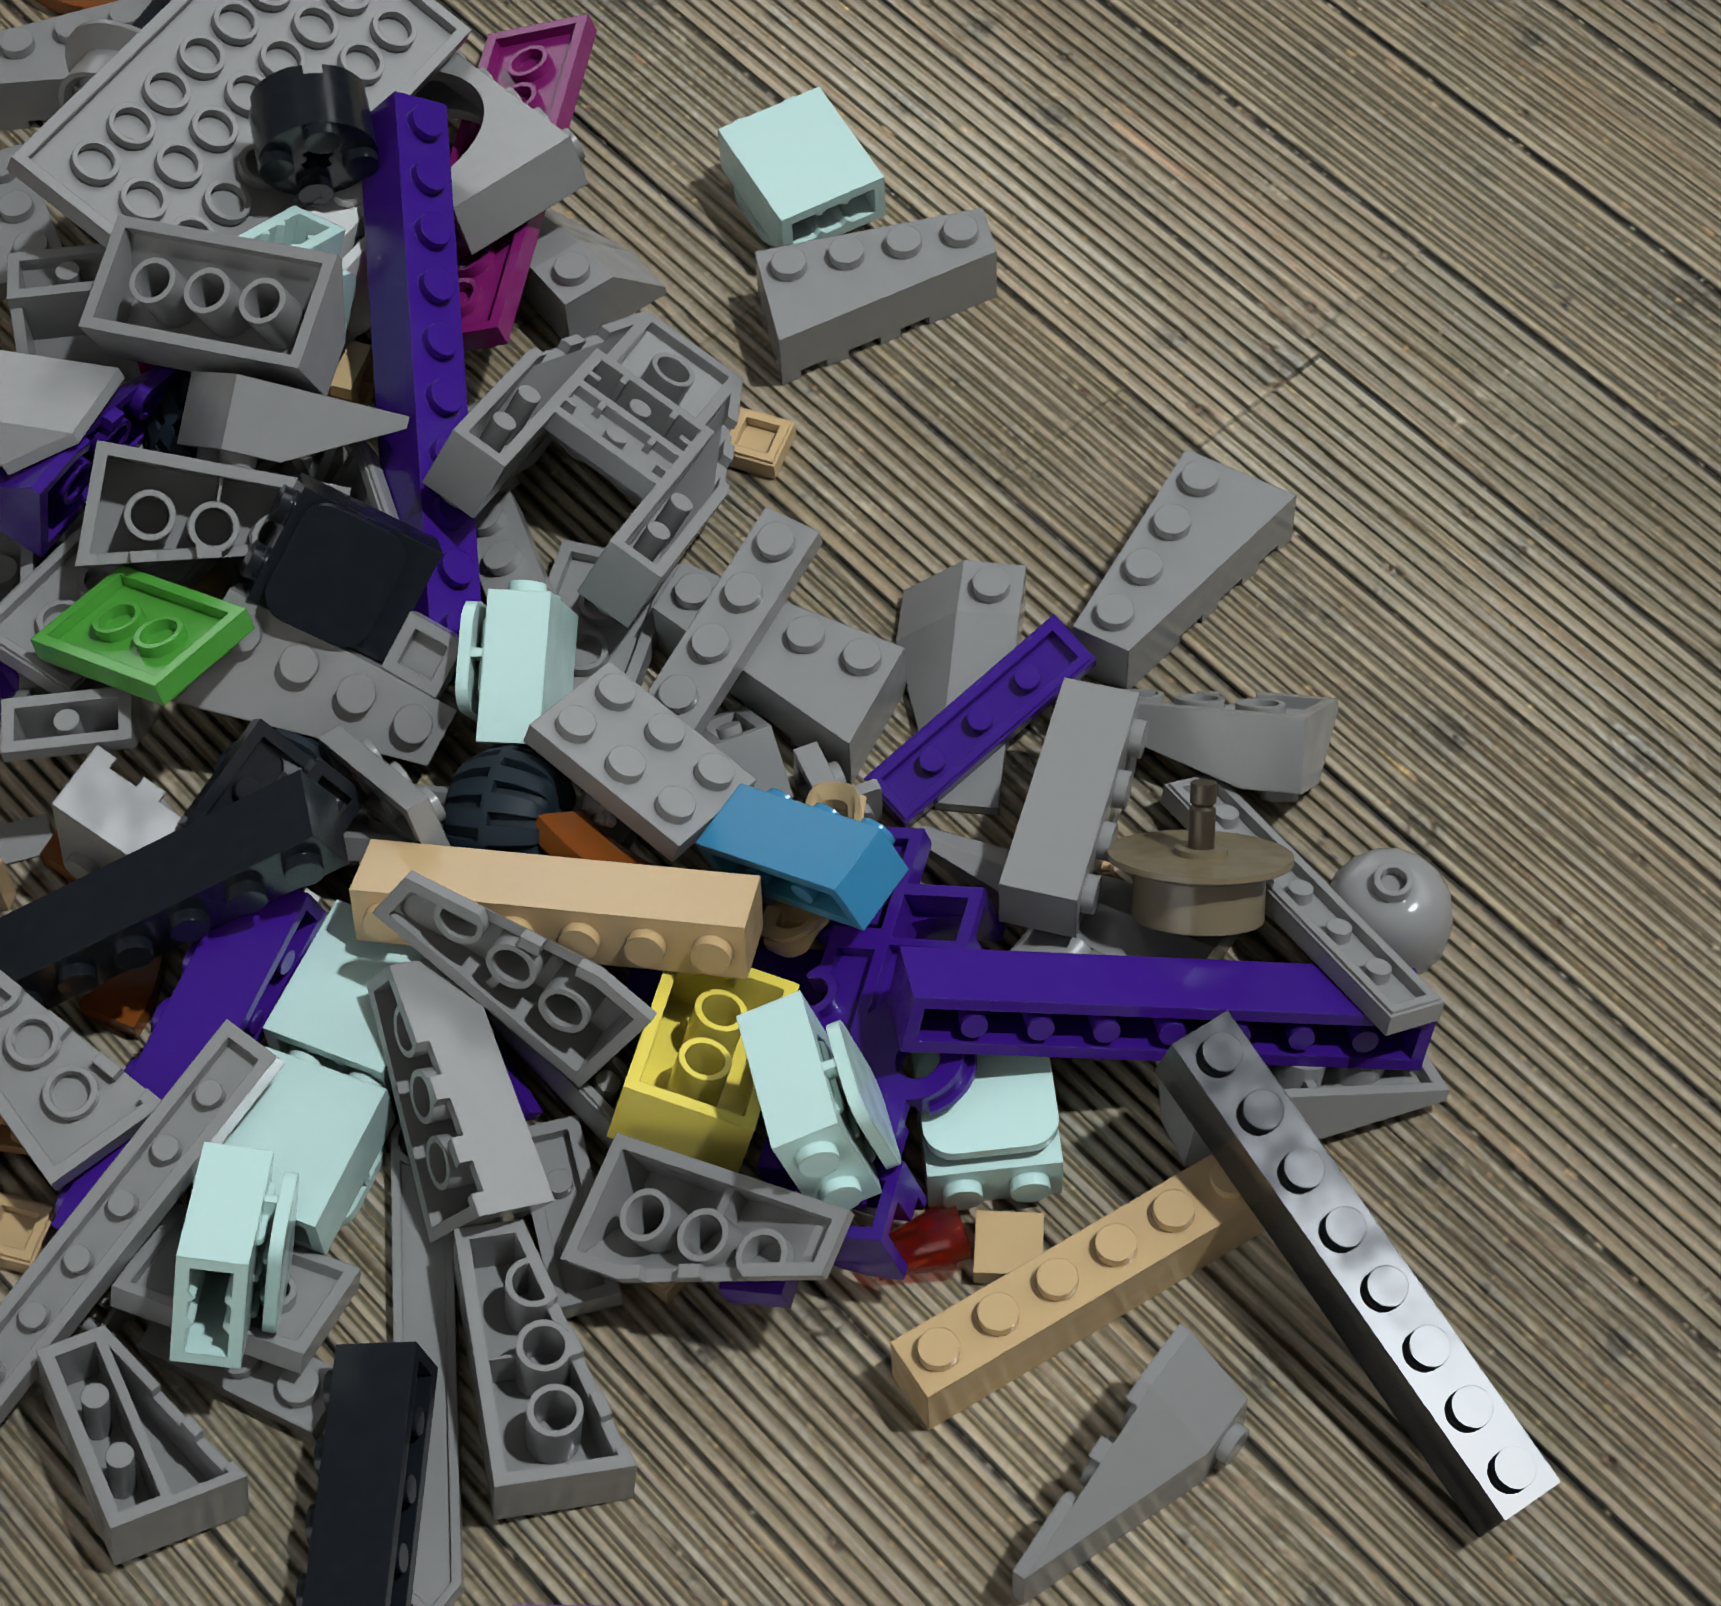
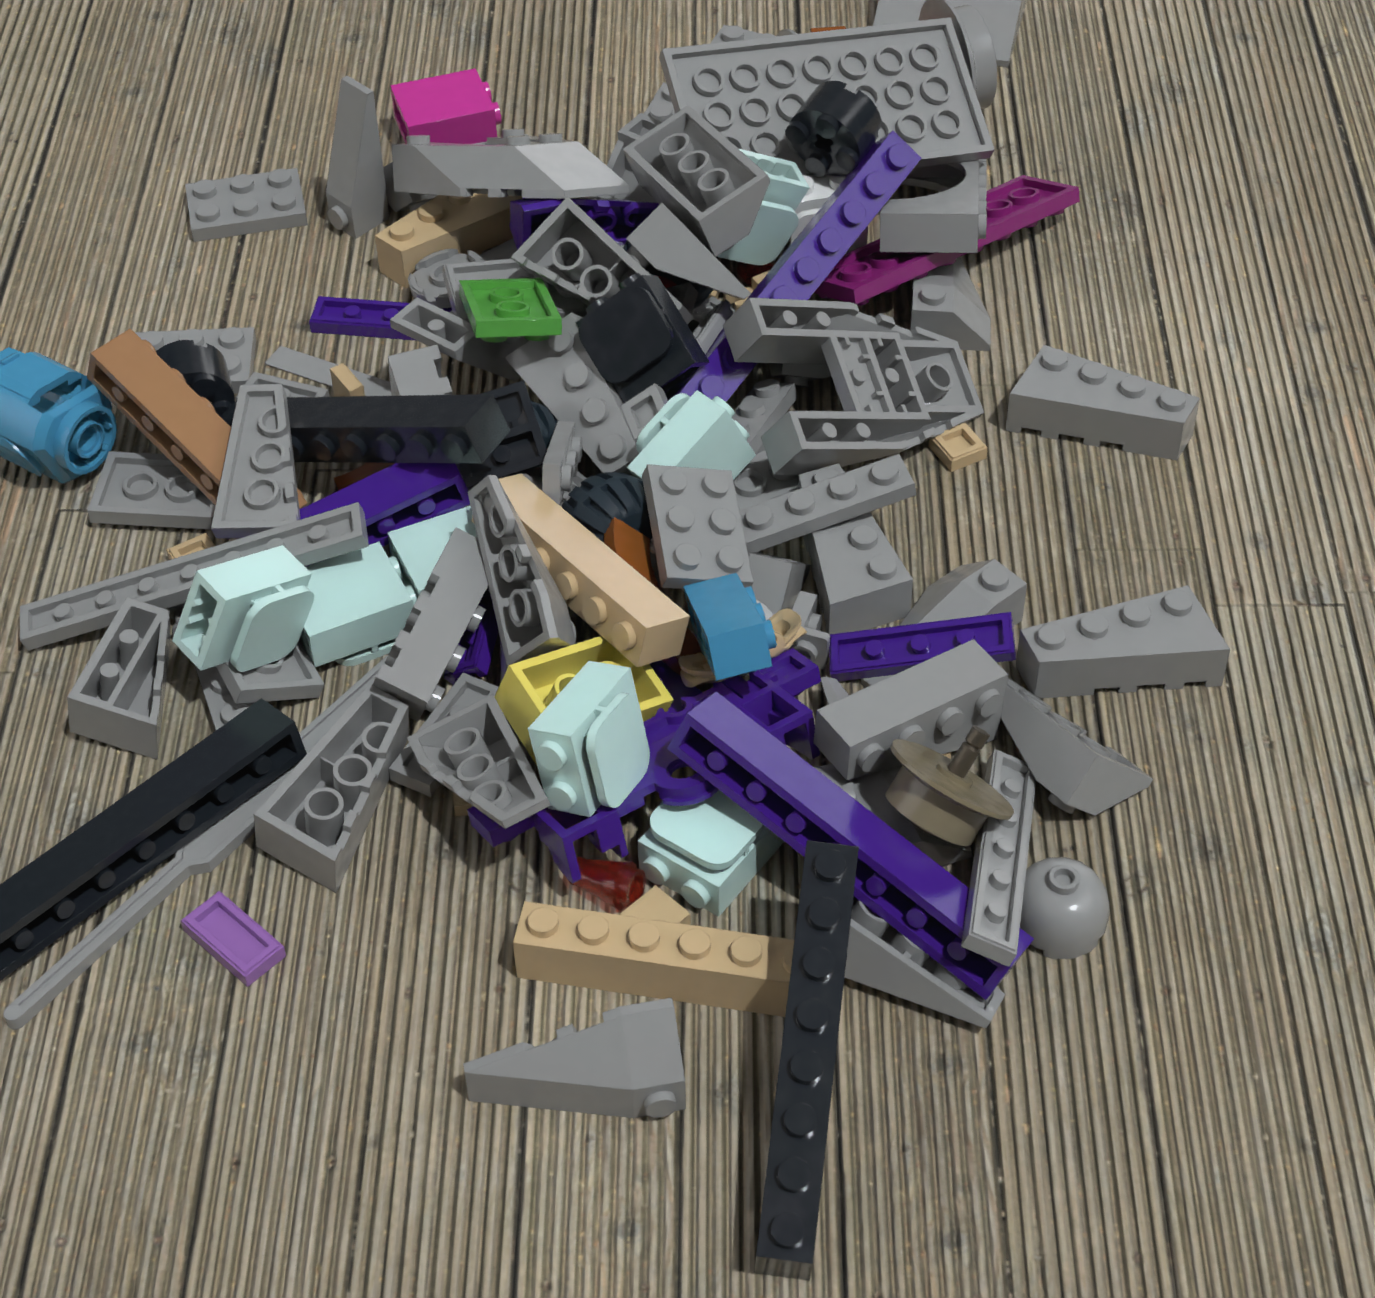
camera: 40 degrees right, 10 degrees down
(800, 171) = (1119, 323): light aqua brick -> none

